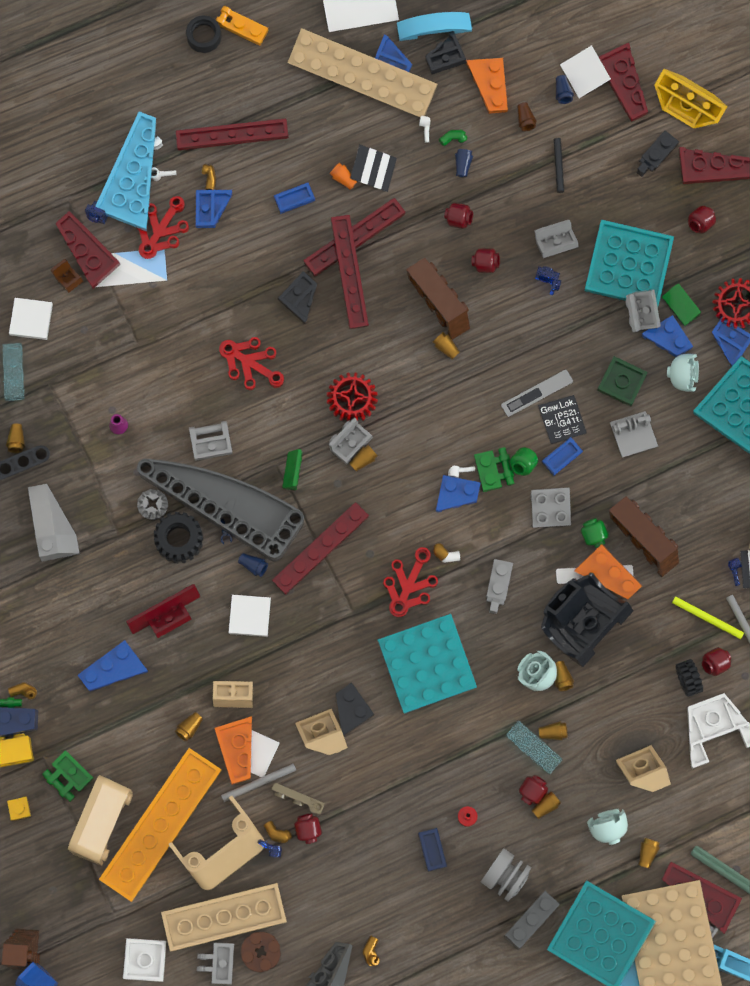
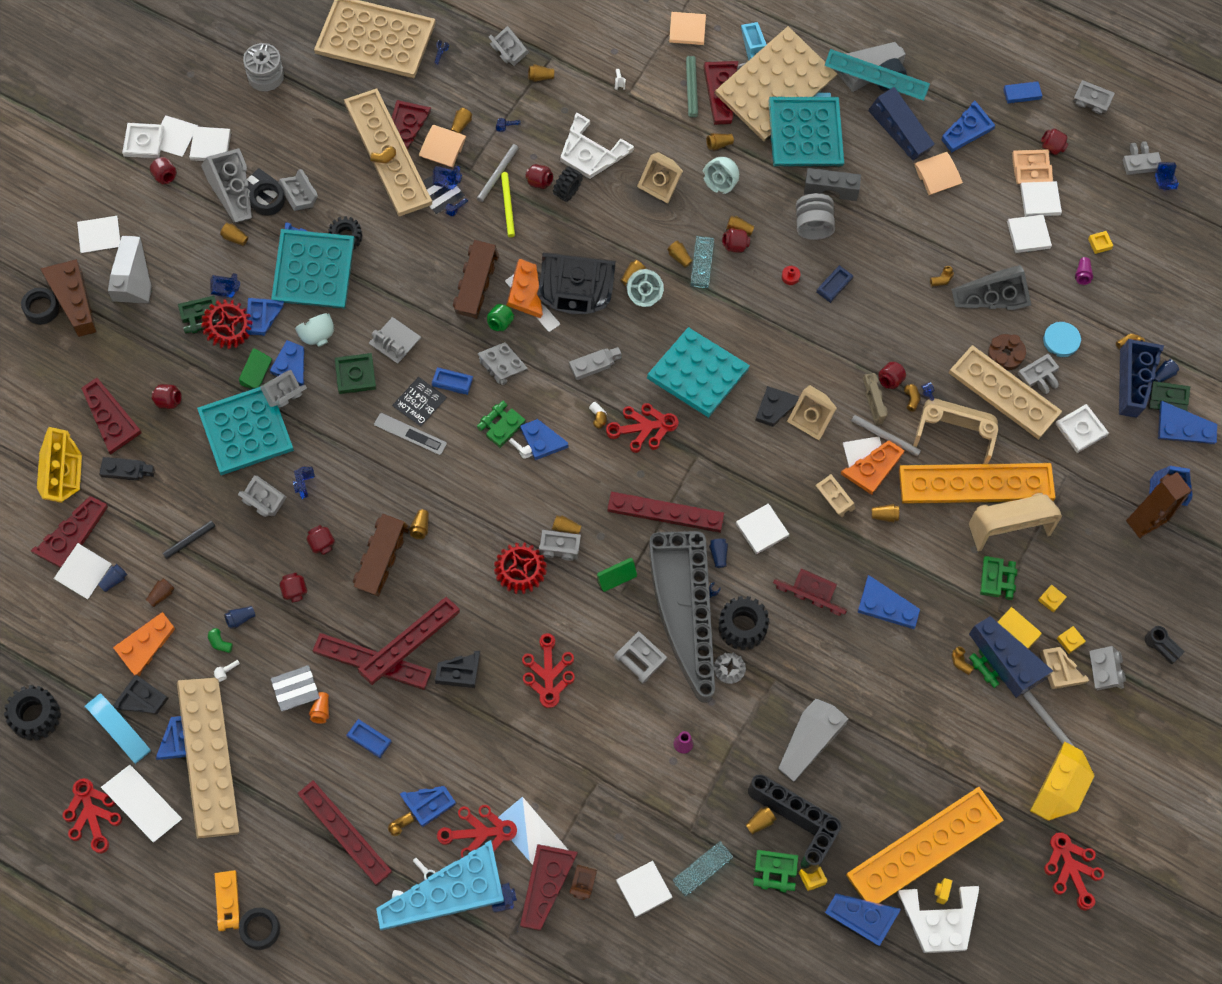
camera: 125 degrees left, 10 degrees down
(523, 461) = (479, 402): green head -> none

